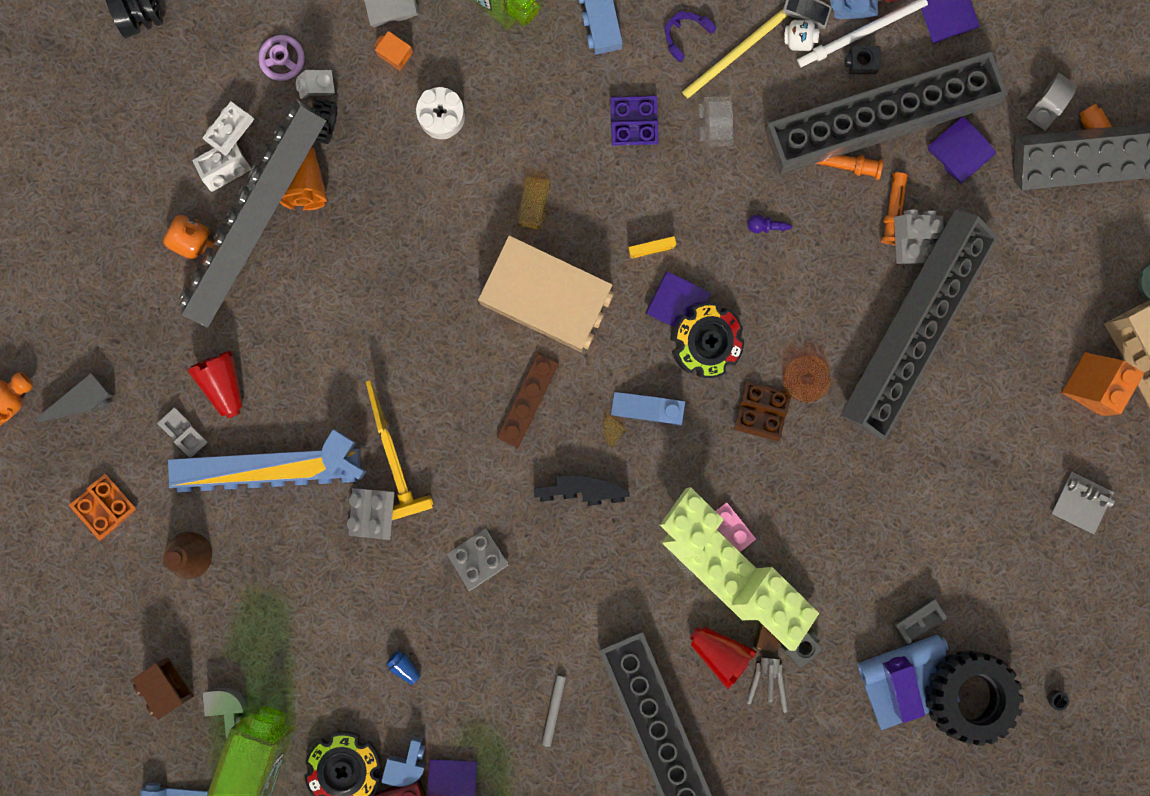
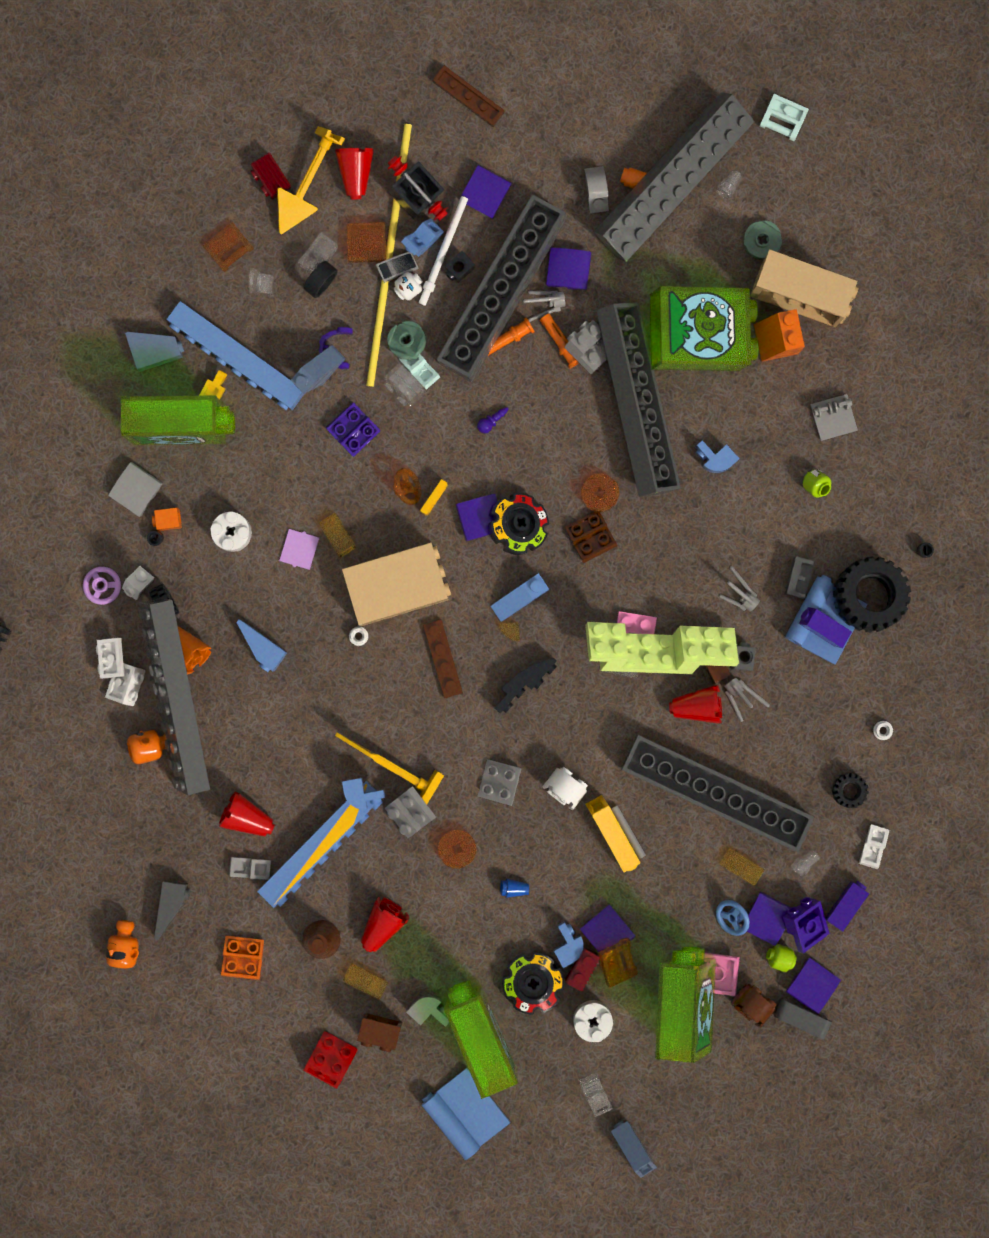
camera: 35 degrees left, 0 degrees up
(98, 672) = (330, 1059): none -> red bracket
(192, 629) = (365, 981): none -> clear yellow slope
(255, 592) = (382, 924): none -> red cone
(367, 53) = (151, 535): none -> black hinge
(373, 246) = (263, 649): none -> medium blue slope
(381, 598) = (447, 854): none -> clear orange plate
(465, 305) = (358, 630): none -> white plate
(488, 185) = (299, 549): none -> lavender piece
(532, 619) = (565, 788): none -> white brick
(538, 700) = (613, 833): none -> yellow slope
(634, 214) = (404, 487): none -> clear orange piece
(651, 36) = (318, 370): none -> sand blue slope
(744, 118) = (421, 371): none -> light aqua slope
(751, 94) = (409, 350): none -> sand green plate
(855, 598) = (748, 599): none -> light grey plant
(924, 167) = (555, 299): none -> light grey plant
(938, 447) = (716, 462): none -> medium blue brick
(1014, 549) = (817, 483): none -> lime head
(1037, 312) = (702, 328): none -> clear neon green brick

